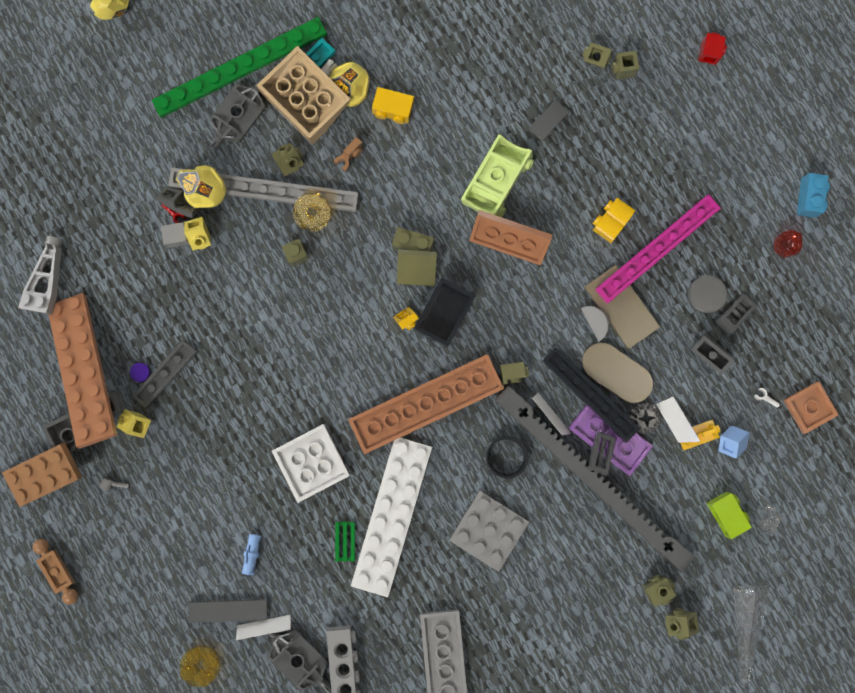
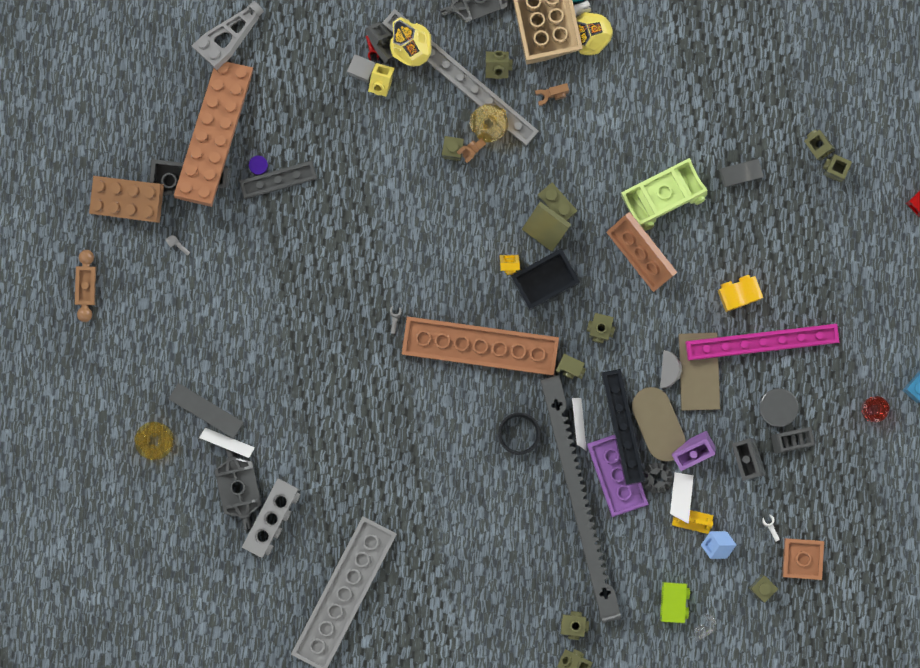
camera: 35 degrees right, 0 degrees up
(133, 423) = (227, 205): light yellow brick -> none
(251, 554) = (255, 376): light blue pin -> none
(310, 463) = (352, 333): white plate -> none
(311, 243) = (471, 149): none -> medium nougat plate
(337, 541) = (329, 430): green tile -> none
(339, 428) = (394, 319): none -> light grey hand
(391, 516) = (391, 420): white plate -> none
(392, 105) = (615, 75): yellow brick -> none
(489, 531) = (464, 485): light grey plate -> none
(517, 316) = (601, 321): none -> olive brick
(605, 470) = (588, 491): dark grey tile -> none
(663, 376) = (694, 451): none -> medium lavender slope
(795, 454) = (763, 588): none -> olive brick

